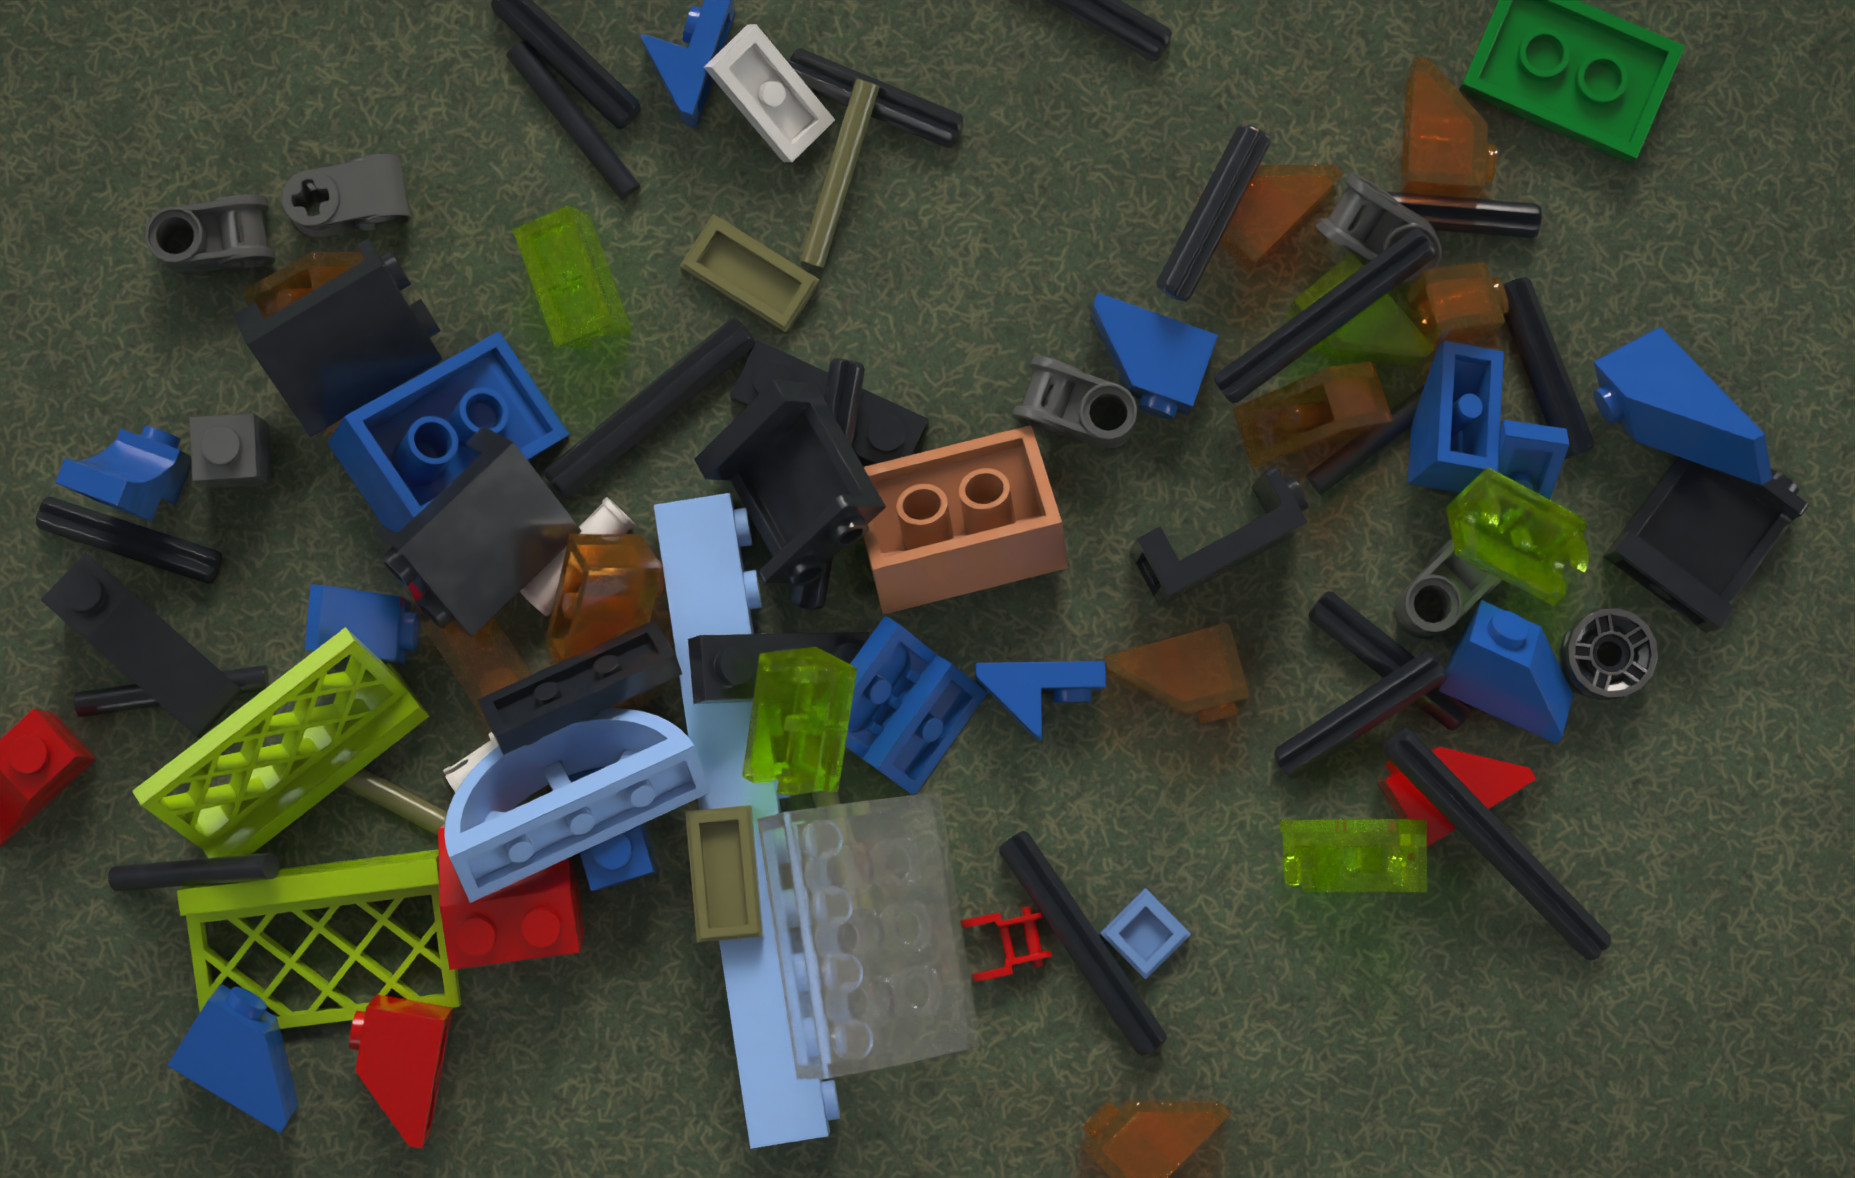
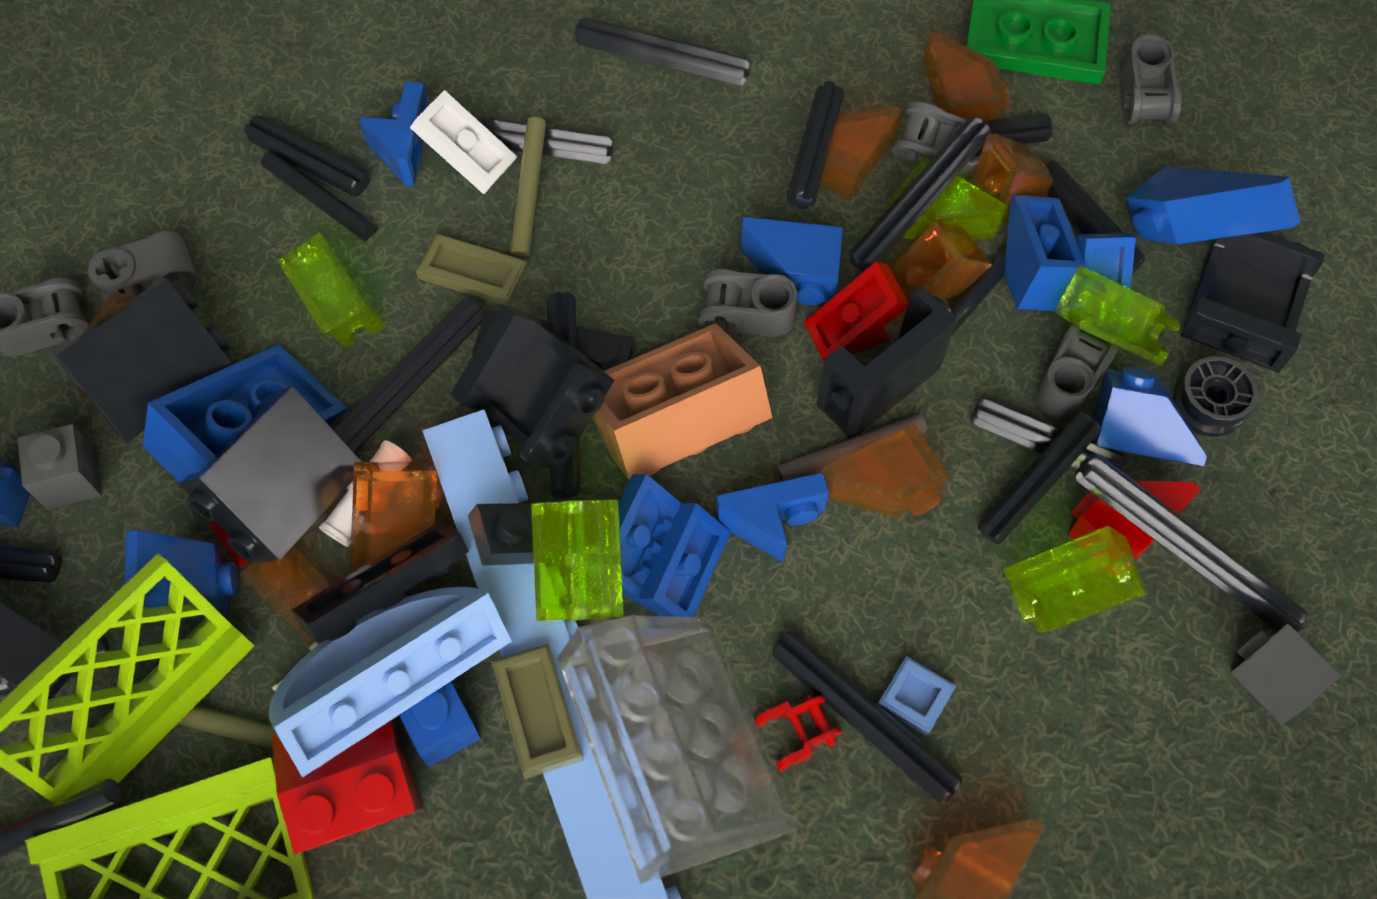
camera: 15 degrees left, 20 degrees down
(1155, 620) = (815, 461): none -> dark grey bar
(1205, 454) = (858, 313): none -> red slope
(1555, 1003) = (1283, 672): none -> dark grey brick
(1689, 199) = (1150, 82): none -> dark grey piece

